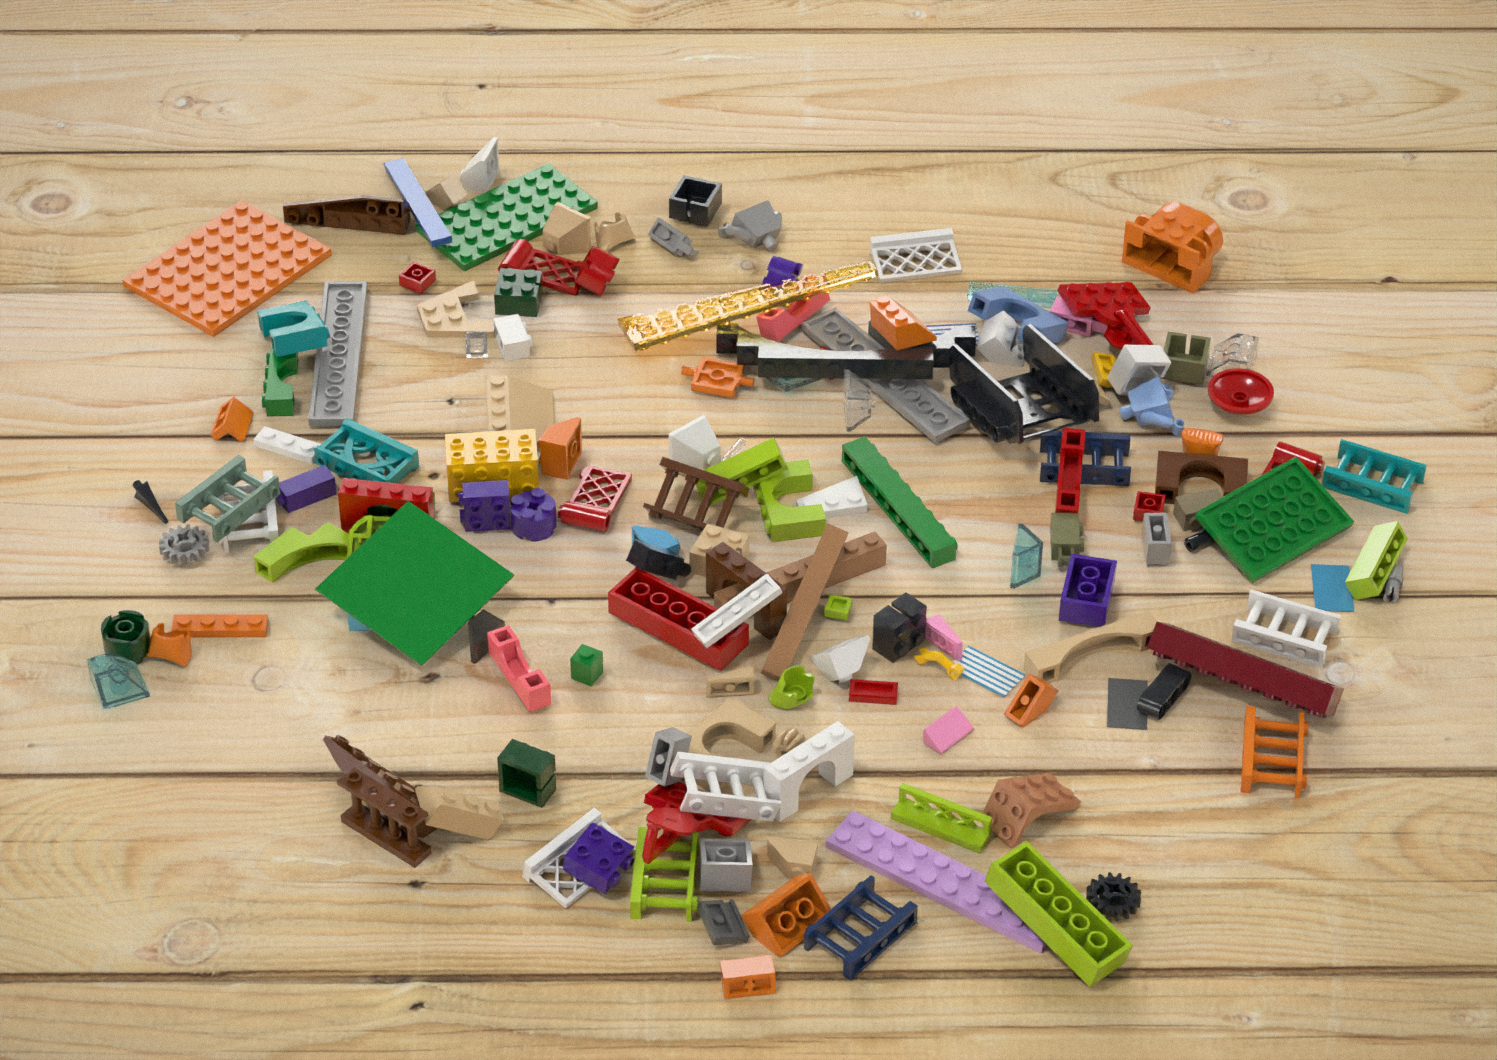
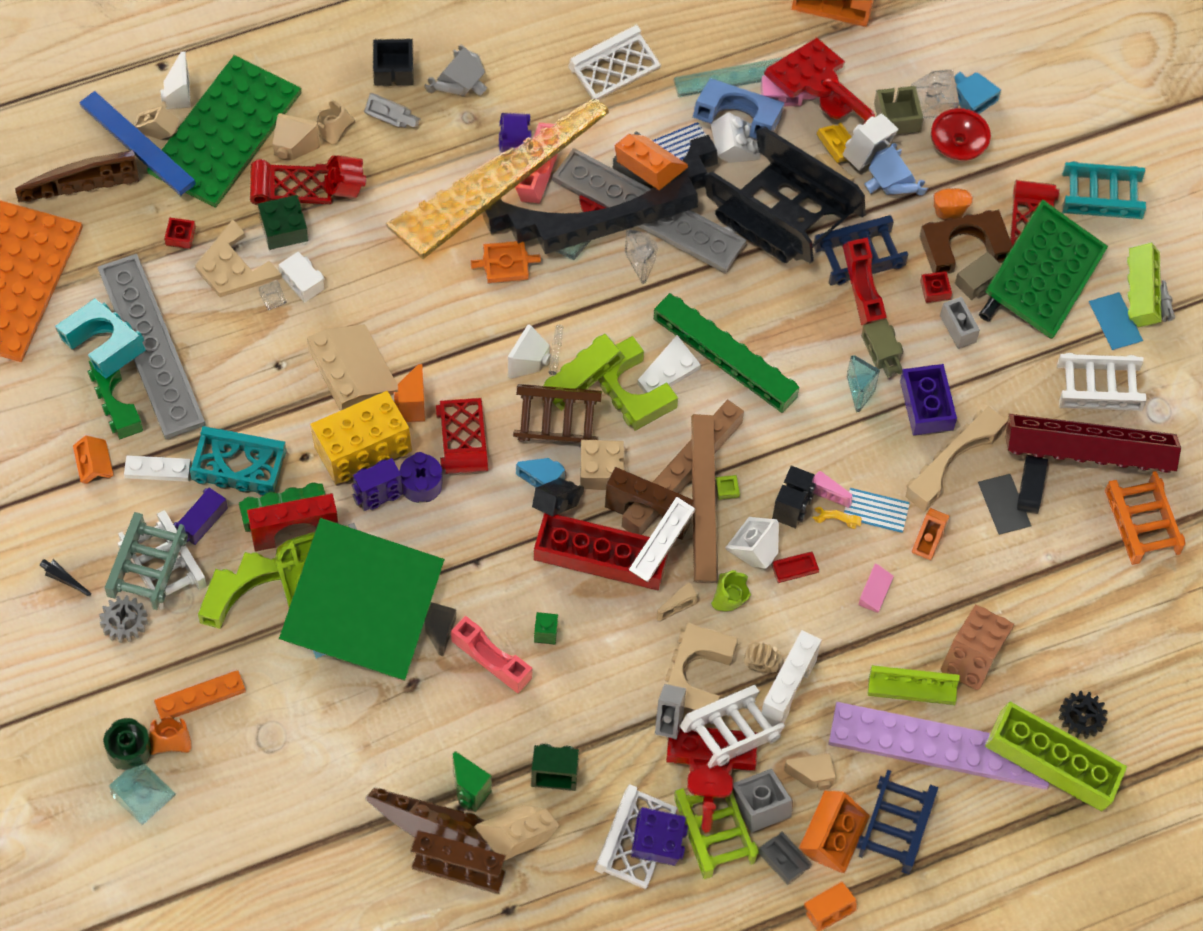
camera: 25 degrees left, 20 degrees up
(435, 759) = (471, 782): none -> green slope
(1278, 366) = (976, 92): none -> dark azure torso

